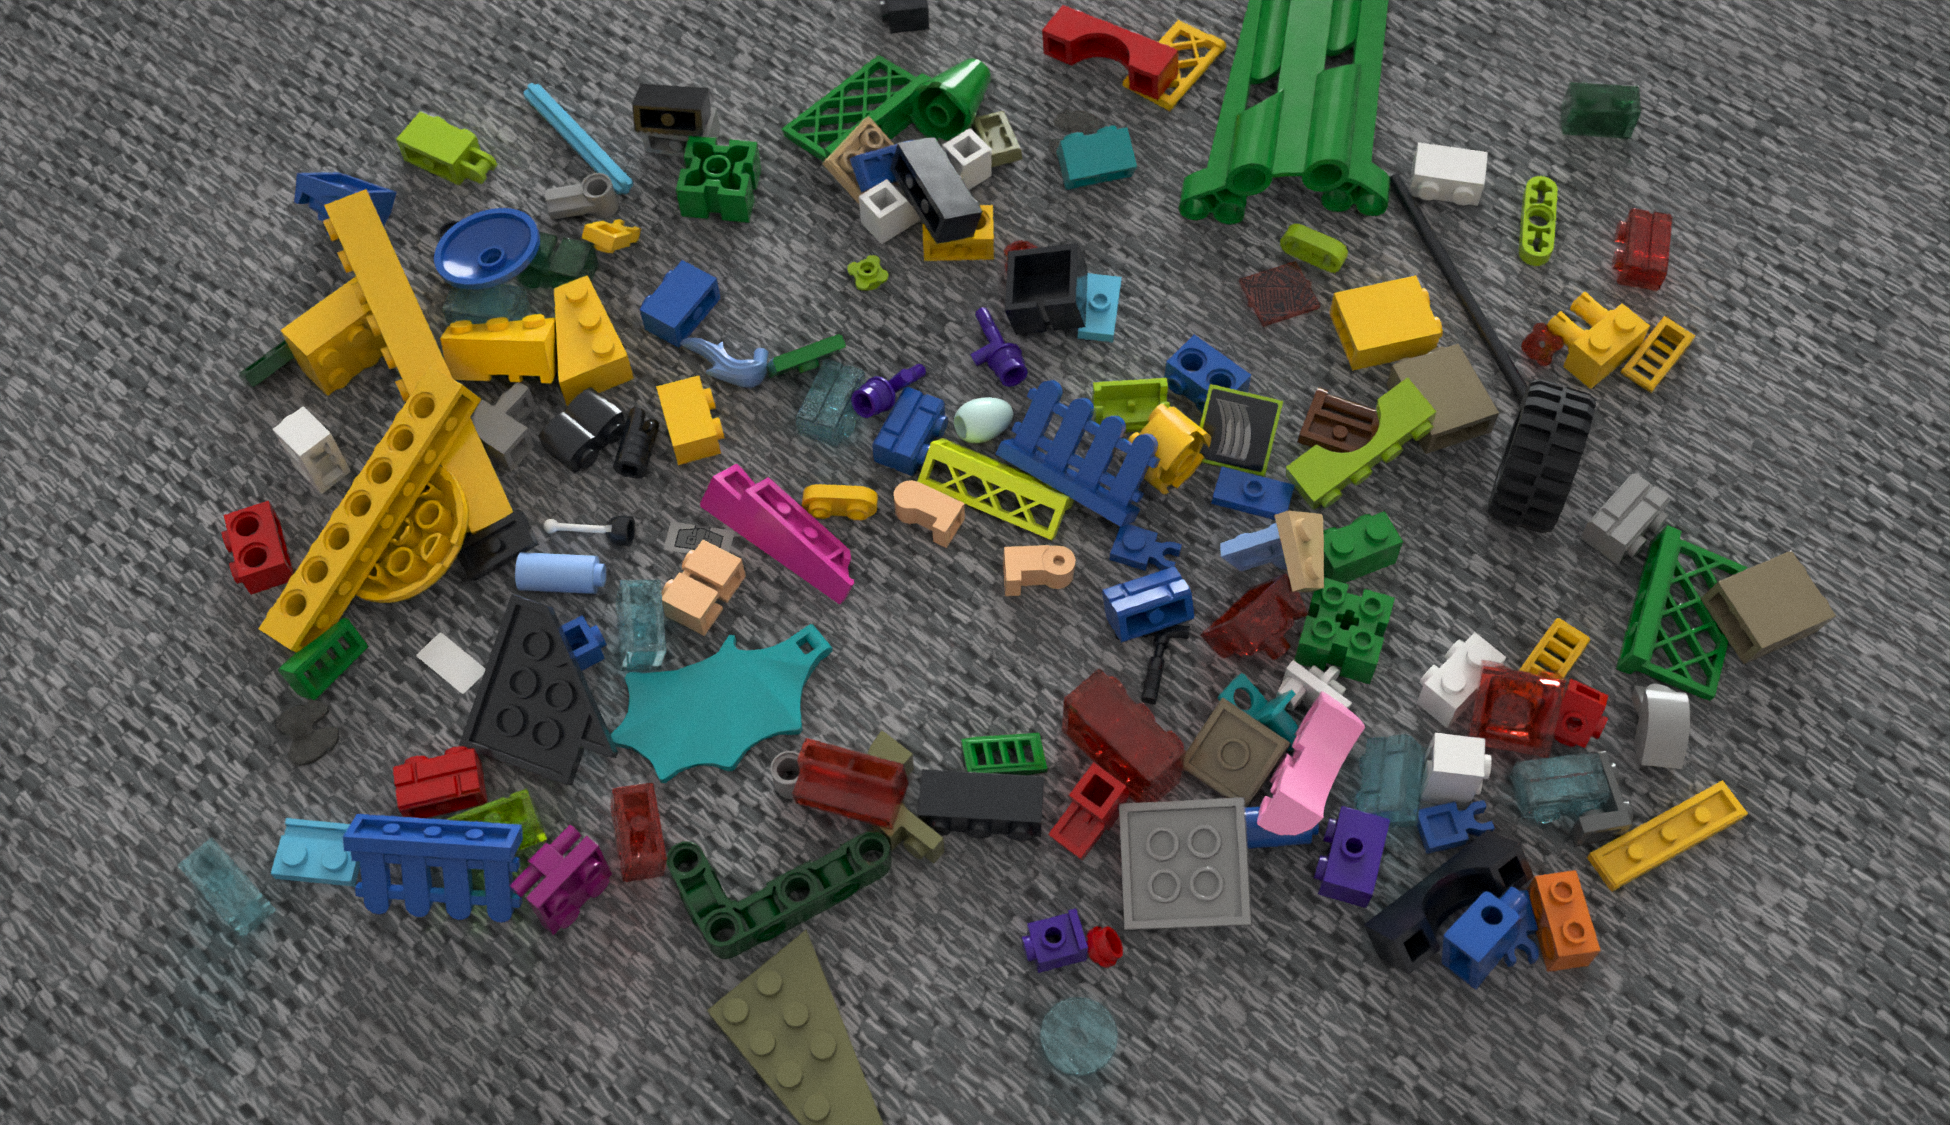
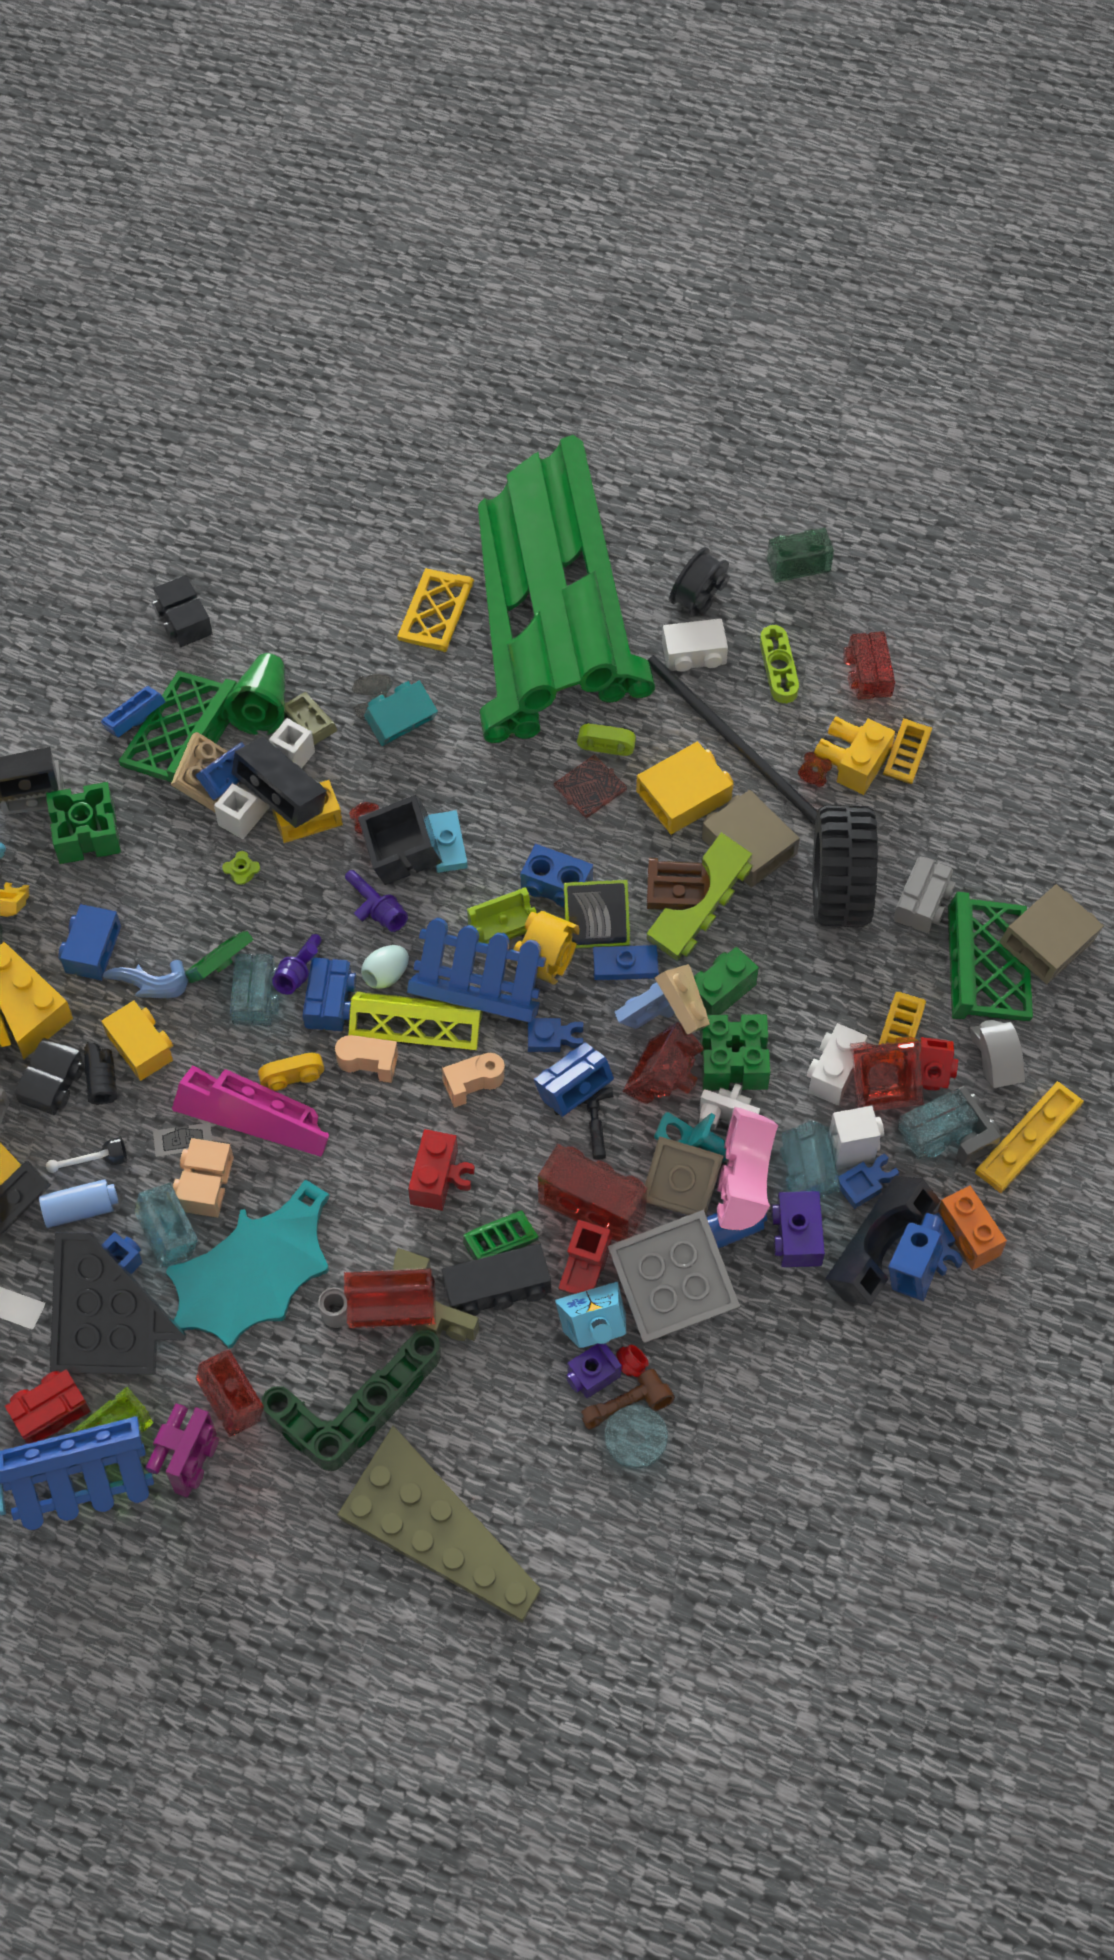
camera: 20 degrees left, 0 degrees up
(815, 83) = (133, 711): none -> blue plate
(957, 658) = (436, 1170): none -> red brick
(1077, 879) = (593, 1315): none -> medium azure torso
(1078, 36) = (346, 607): red arch -> none
(1115, 987) = (650, 1390): none -> reddish brown brick
(1475, 107) = (699, 582): none -> black wheel

